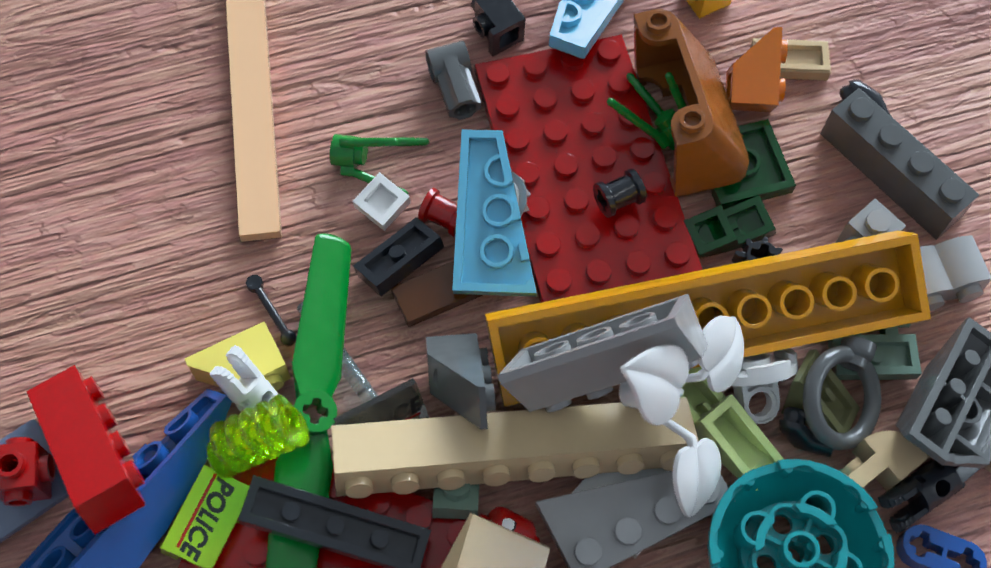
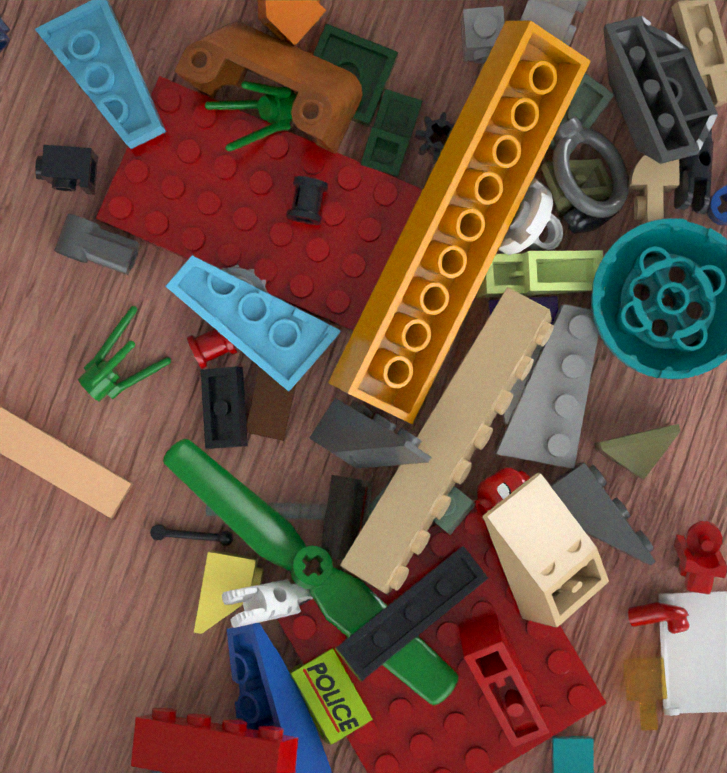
camera: 50 degrees left, 20 degrees up
(255, 436) = (304, 623): clear neon green piece -> none
(381, 201) = (165, 386): white plate -> none
(592, 357) = (447, 333): light grey slope -> none
(655, 390) = (503, 312): white plant -> none

